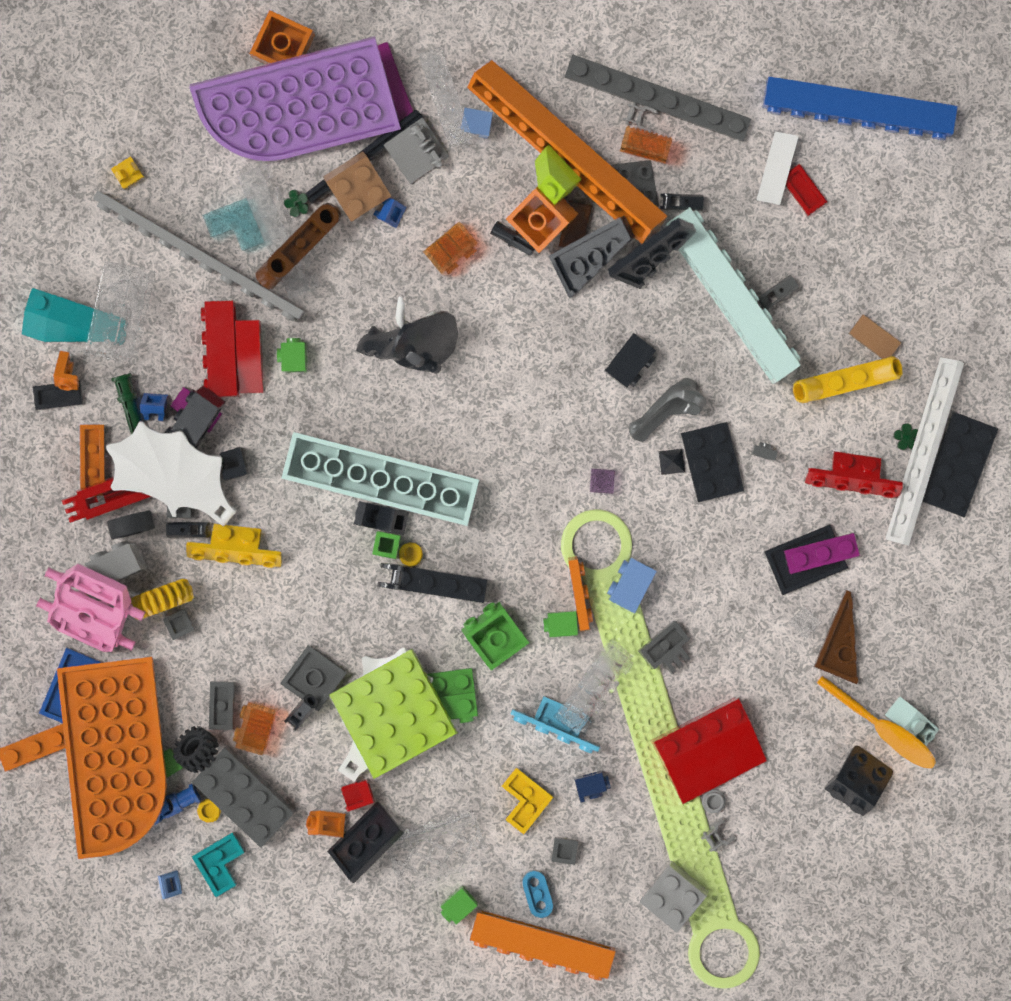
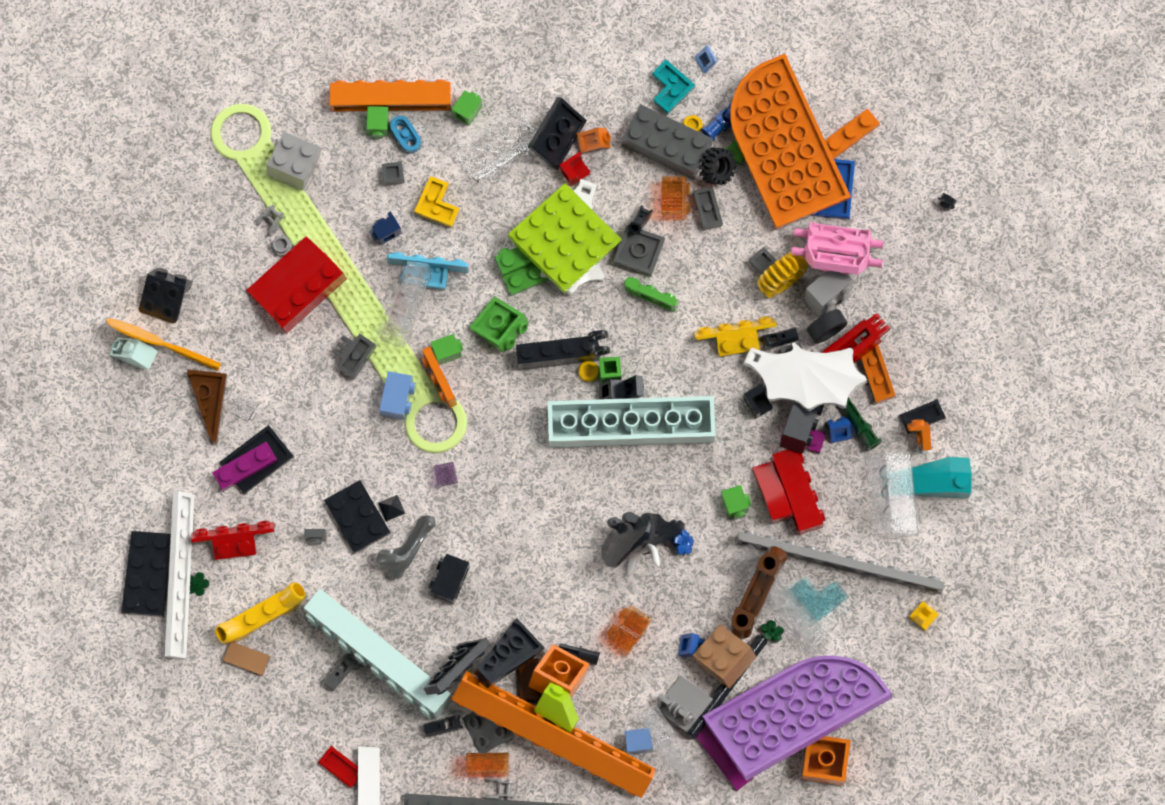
camera: 170 degrees right, 15 degrees down
(316, 623) = (651, 294): none -> bright green hinge
(363, 327) = (684, 543): none -> blue plant
(565, 917) = (377, 122): none -> bright green brick

